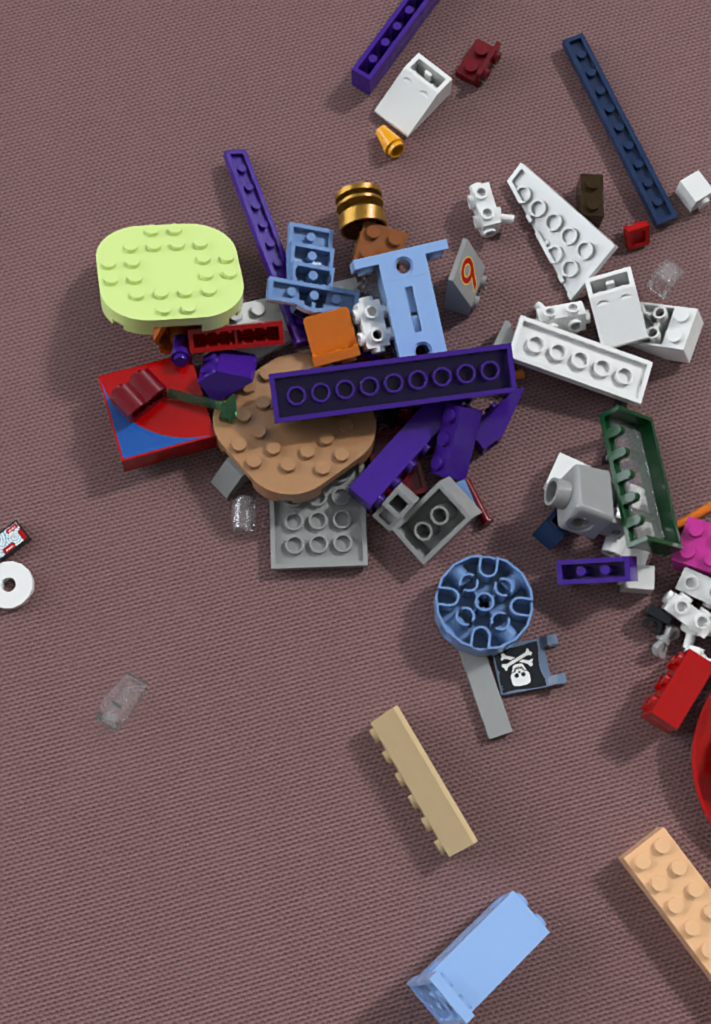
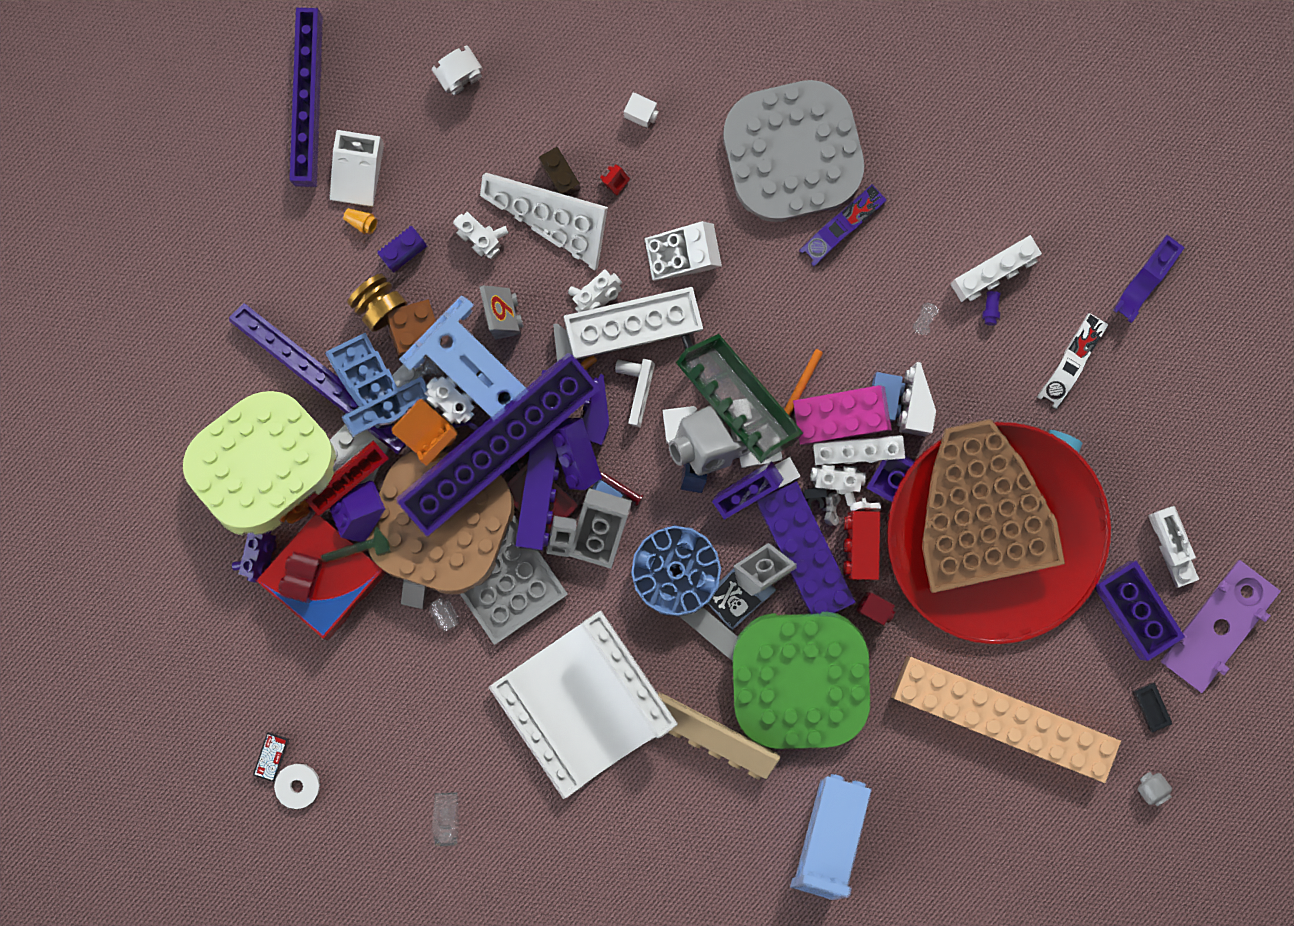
camera: 30 degrees left, 10 degrees up
(116, 356) = (256, 555): none -> dark purple brick
(180, 354) = (309, 520): dark purple animal -> none
(319, 674) = (582, 704): none -> white panel
(411, 183) = (402, 249): none -> dark purple brick
(478, 62) = (389, 100): dark red bracket -> none
(542, 783) = (801, 680): none -> bright green plate
(553, 67) = (458, 69): none -> white brick
(561, 414) = (645, 373): none -> white piece
(567, 652) = (762, 569): none -> light grey slope
(616, 308) = (637, 259): white slope -> none
(616, 664) = (802, 542): none -> dark purple brick
(619, 131) = (545, 90): dark blue plate -> none
(655, 759) = (875, 608): none -> dark red brick
(665, 278) = (660, 204): clear brick -> none

